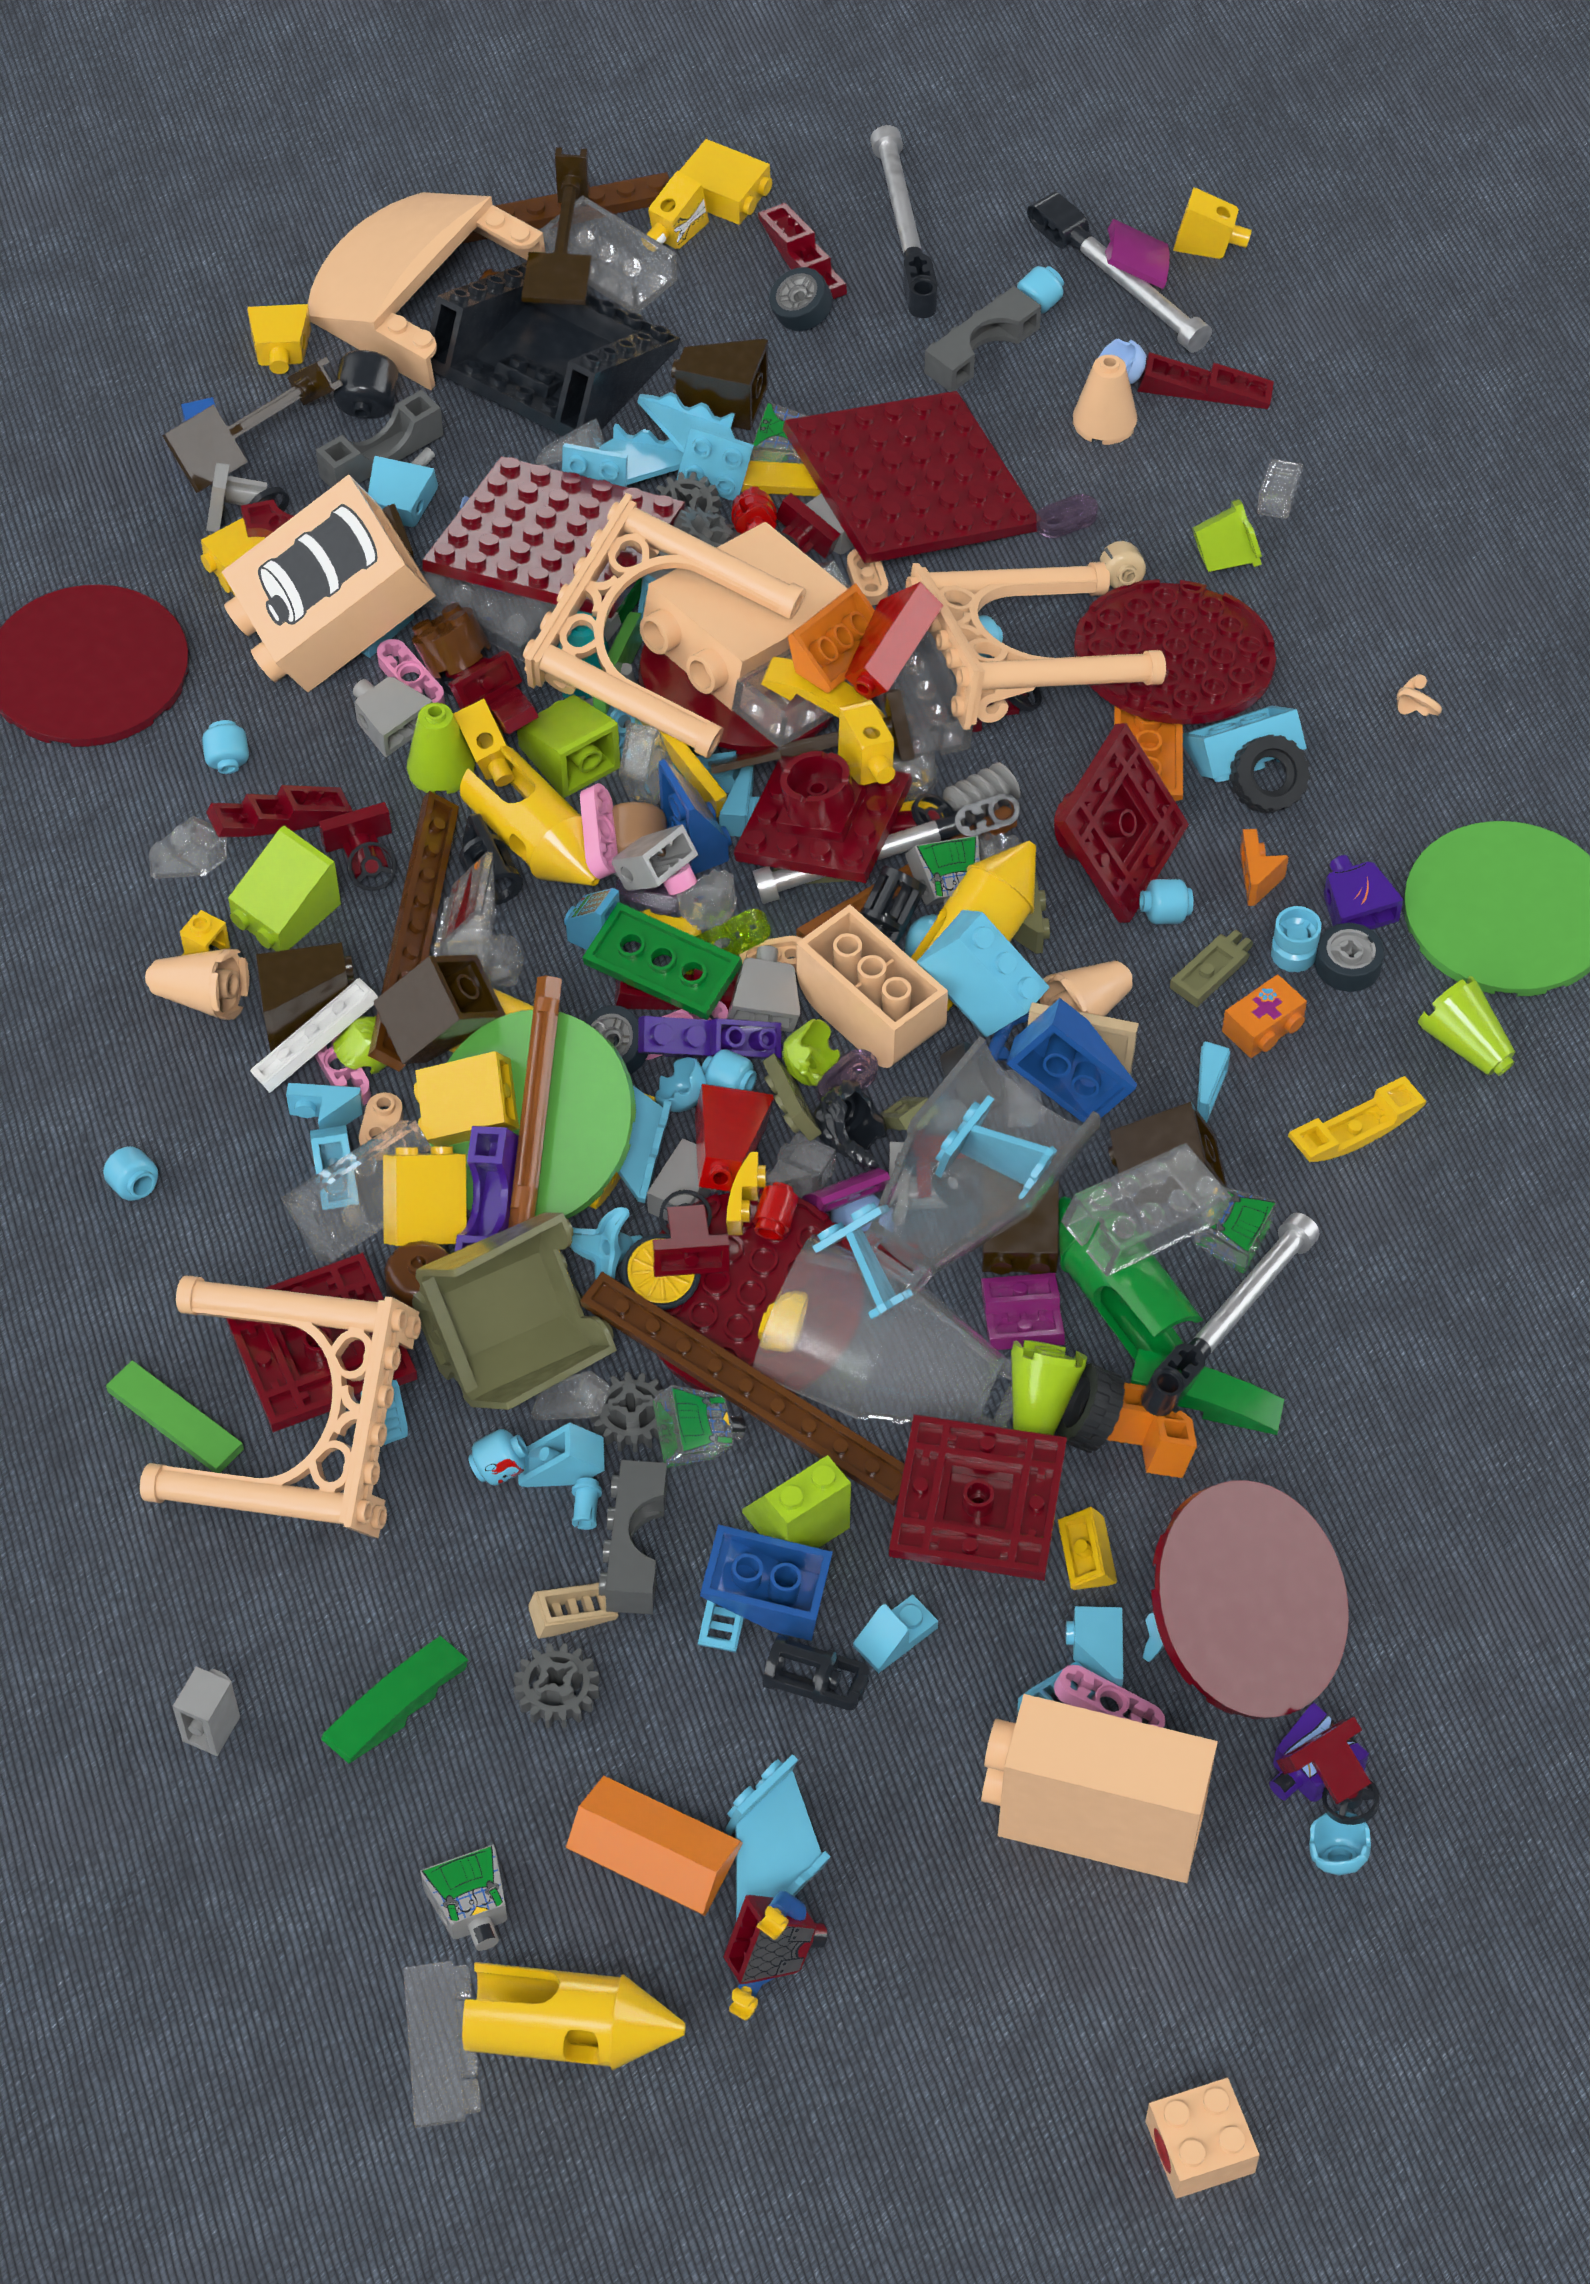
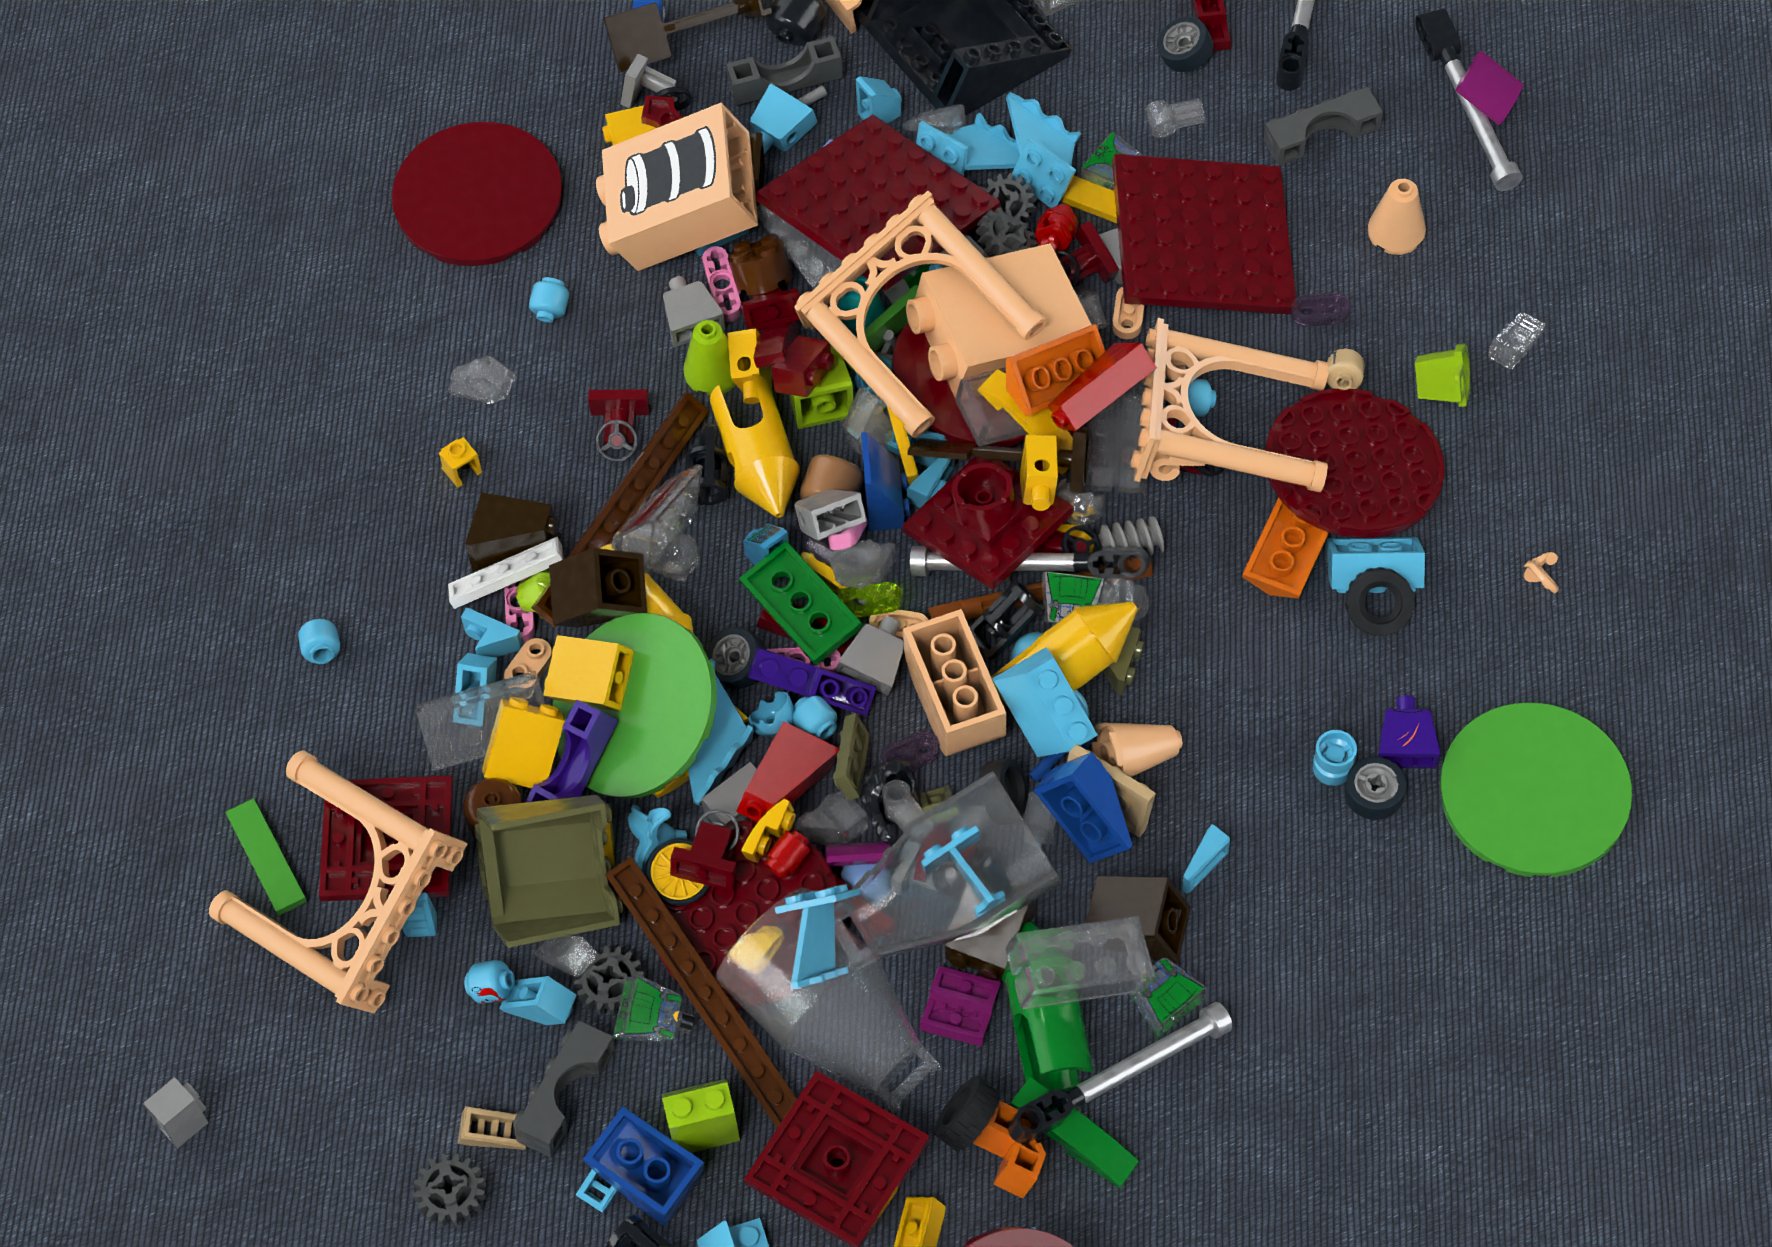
camera: 25 degrees right, 5 degrees up
(202, 981) = (442, 498): light nougat cone -> none
(265, 814) = (568, 371): dark red slope -> none
(285, 892) = (536, 443): lime slope -> none
(393, 1699) = (321, 1154): green slope -> none
(495, 440) = (877, 98): none -> medium azure slope
(535, 1099) = (636, 696): dark orange piece -> none
(558, 720) = (804, 366): none -> dark red brick
(586, 1501) = (541, 1044): medium azure pin -> none
(598, 830) = (803, 454): bright pink beam -> none
(725, 377) = (1085, 100): dark brown slope -> none
(809, 1053) = (887, 721): lime hair -> none
(816, 376) = (1167, 117): none -> clear piece
(873, 1127) = (899, 804): none -> clear piece
(1042, 1384) = (936, 1081): lime cone -> none
(1043, 286) = (1393, 94): medium azure head -> none
(1120, 822) = (1226, 608): dark red piece -> none
(1131, 354) = (1432, 183): light blue hair -> none
(1166, 901) = (1242, 686): medium azure head -> none
(1209, 226) = (1563, 80): yellow torso -> none
(1211, 967) = (1254, 757): olive hinge -> none
(1218, 385) = (1506, 228): dark red slope -> none
(1259, 871) = (1335, 687): orange slope -> none
(1264, 1016) = (1277, 817): orange brick -> none
(1359, 1125) = (1311, 941): yellow slope -> none
(1470, 1028) = (1445, 889): lime cone -> none

